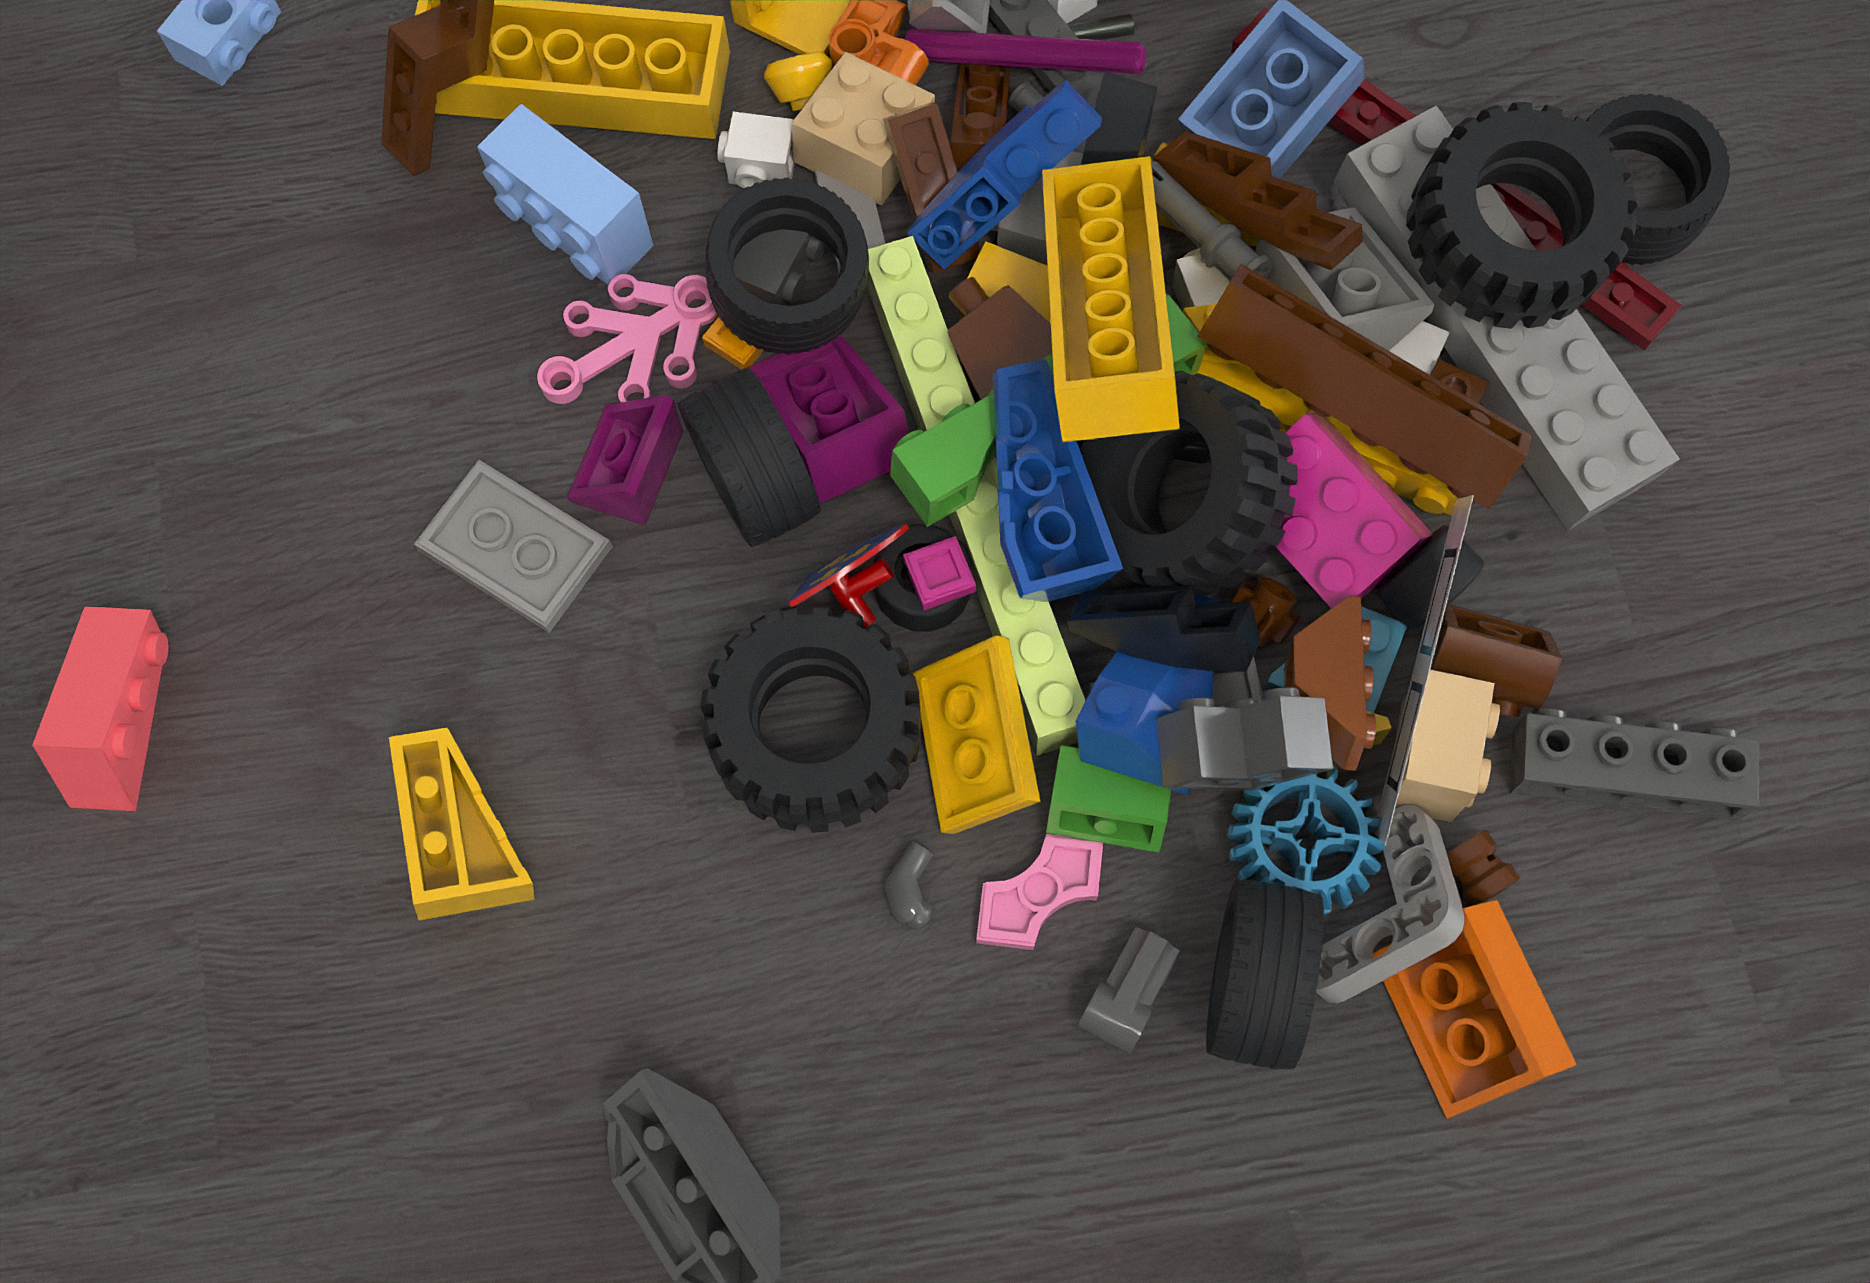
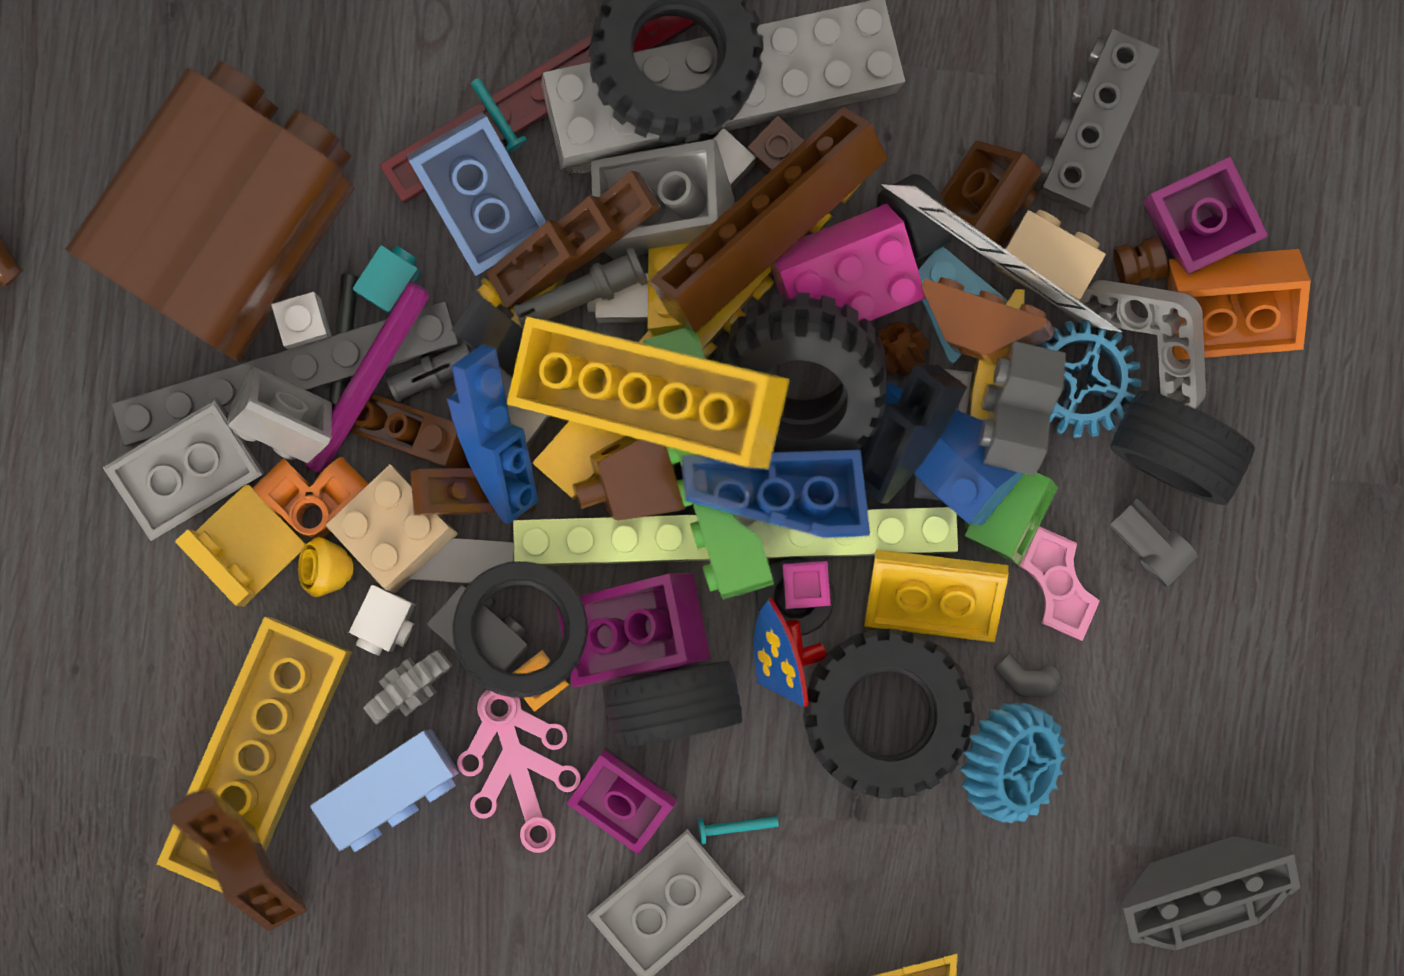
camera: 75 degrees left, 15 degrees up
(613, 560) = (736, 826): none -> teal pin
(670, 171) = (407, 687): none -> light grey gear
(802, 864) = (1013, 762): none -> dark azure gear
(1158, 40) = (387, 277): none -> teal brick
(1341, 128) = (513, 142): none -> teal pin
(1575, 924) = (1205, 216): none -> magenta slope

